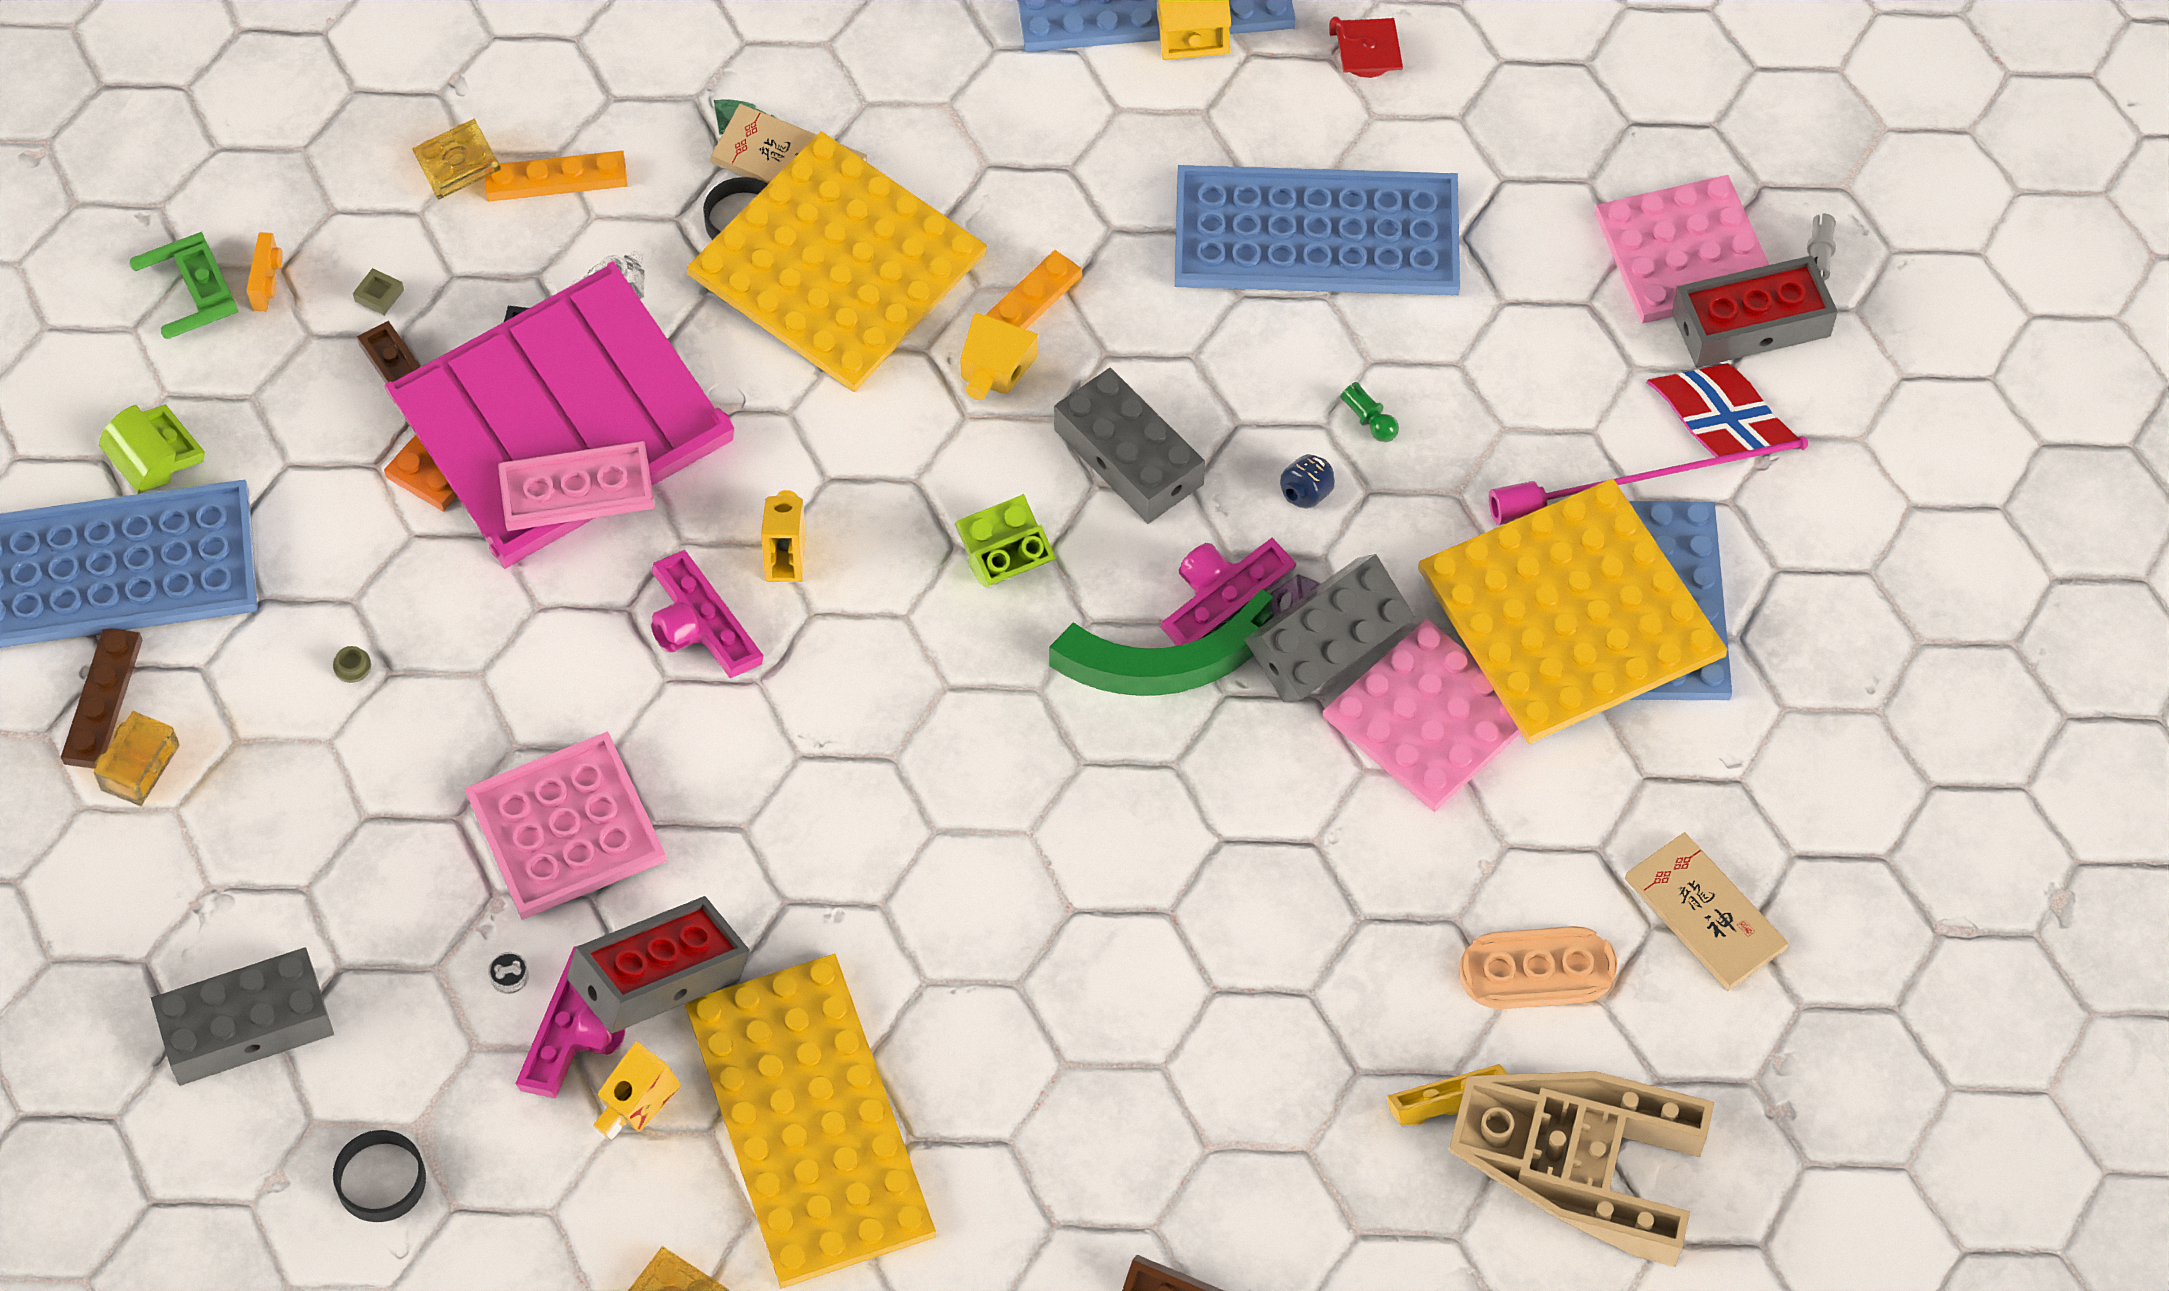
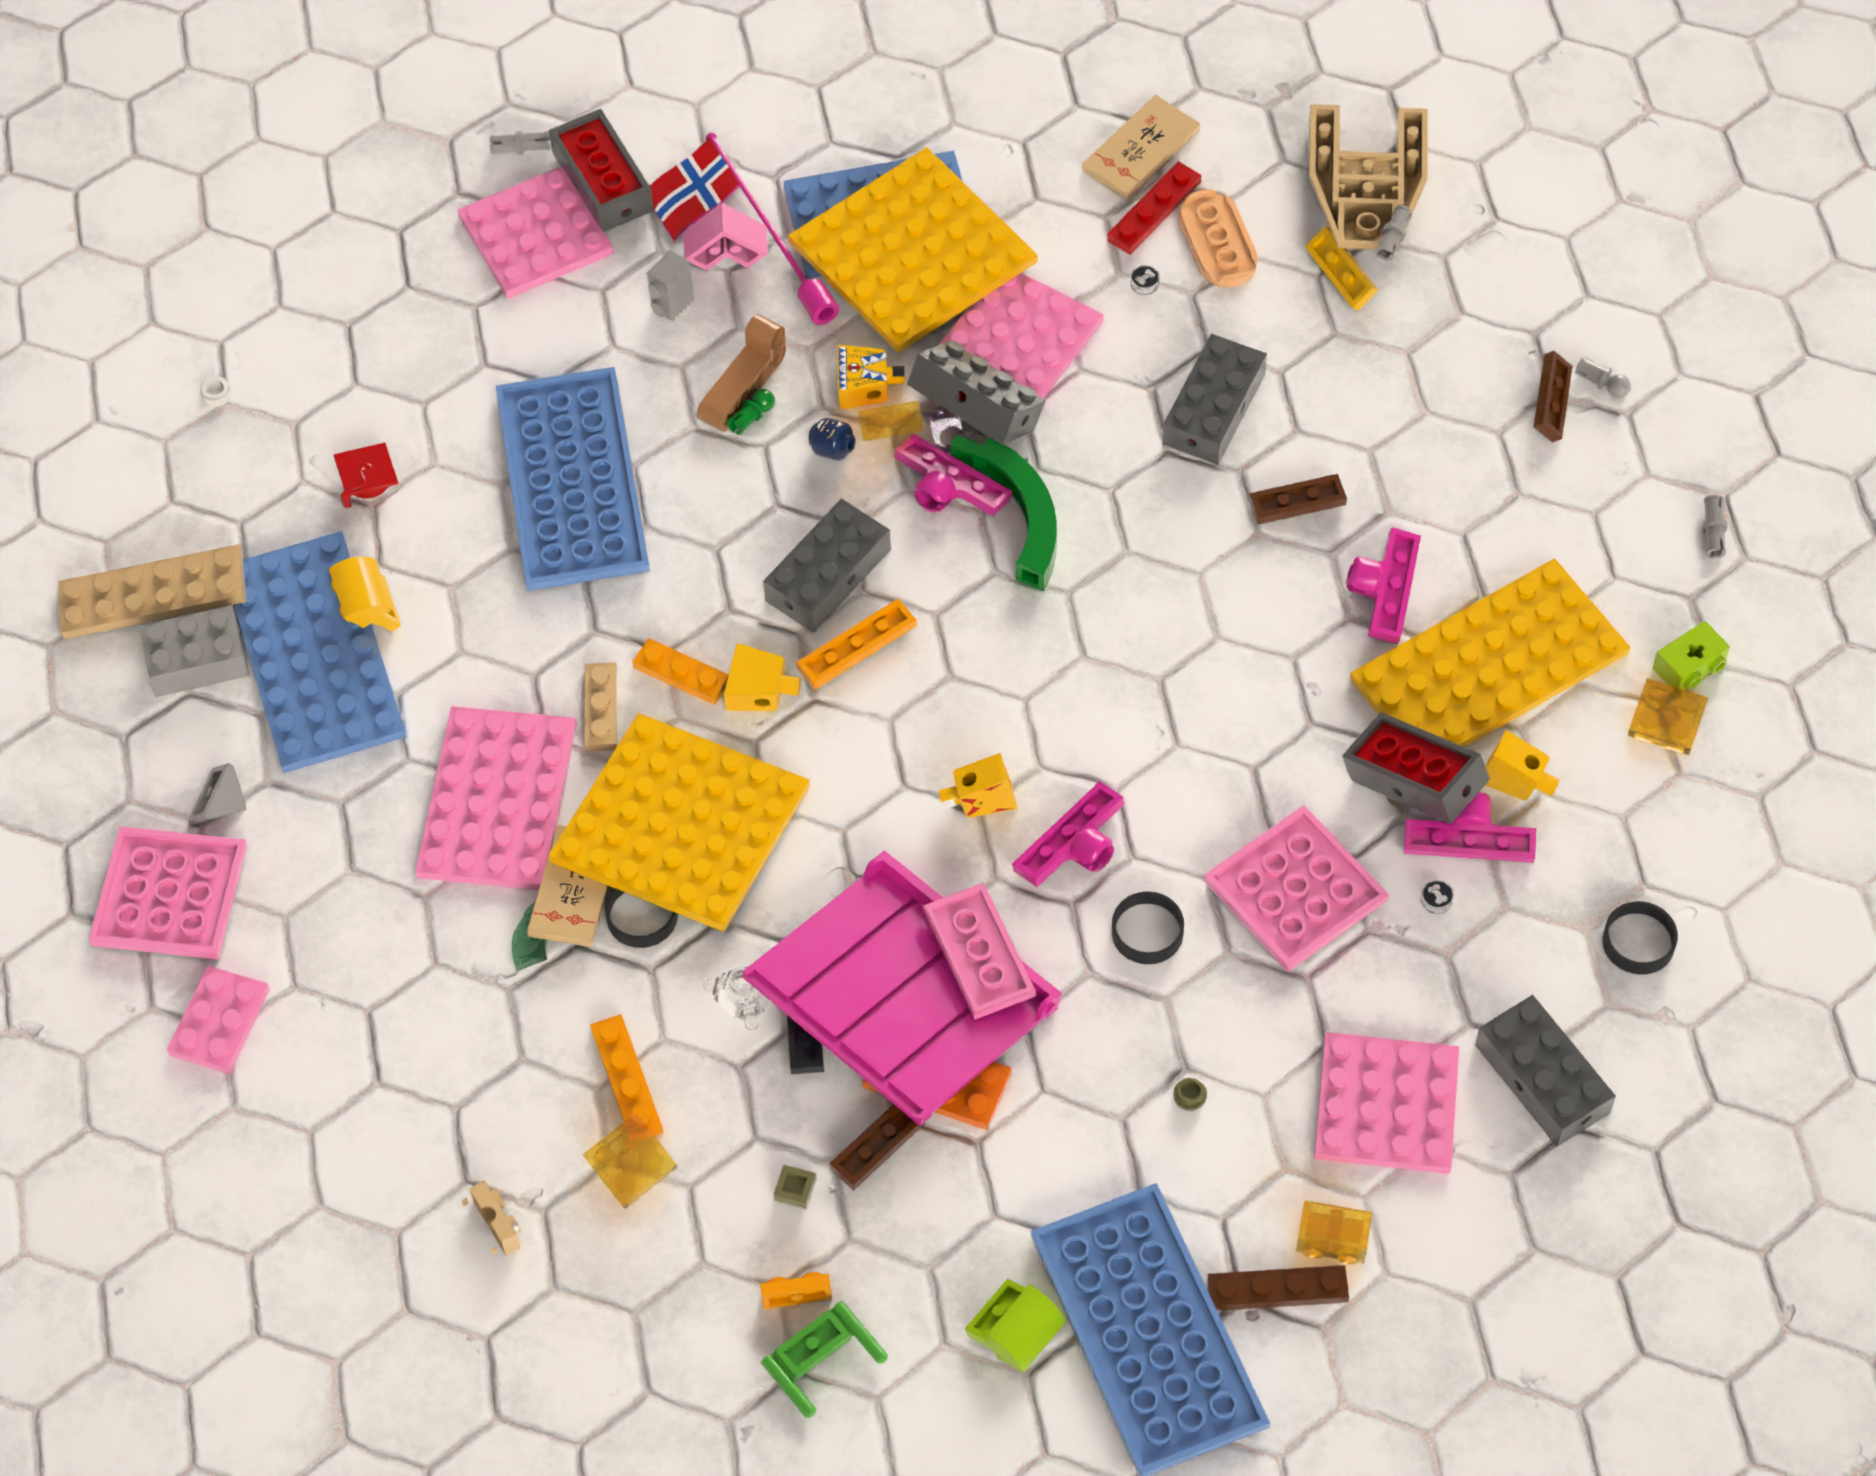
camera: 100 degrees left, 0 degrees up
(273, 856) = (1387, 1103): none -> bright pink plate
(422, 50) = (490, 1207): none -> tan piece
(559, 636) = (1147, 898): none -> black tyre
(925, 113) = (496, 798): none -> bright pink plate
(948, 1024) = (1387, 583): none -> dark pink plate
(1004, 541) = (949, 630): lime brick -> none
(1009, 217) = (600, 706): none -> tan plate
(1018, 457) = (856, 644): none -> light orange plate
(1101, 957) = (1297, 499): none -> reddish brown plate
(1271, 894) = (1214, 399): none -> dark grey brick
(1312, 537) = (890, 421): none -> clear yellow brick
(1394, 528) = (865, 376): none -> yellow torso
(1419, 412) = (746, 374): none -> medium nougat beam
(1462, 1138) = (1393, 232): none -> light grey pin
(1484, 867) = (1145, 280): none -> tile
(1559, 349) = (670, 285): none -> light grey brick
(1602, 904) = (1154, 208): none -> red plate
(1622, 418) = (725, 234): none -> bright pink brick

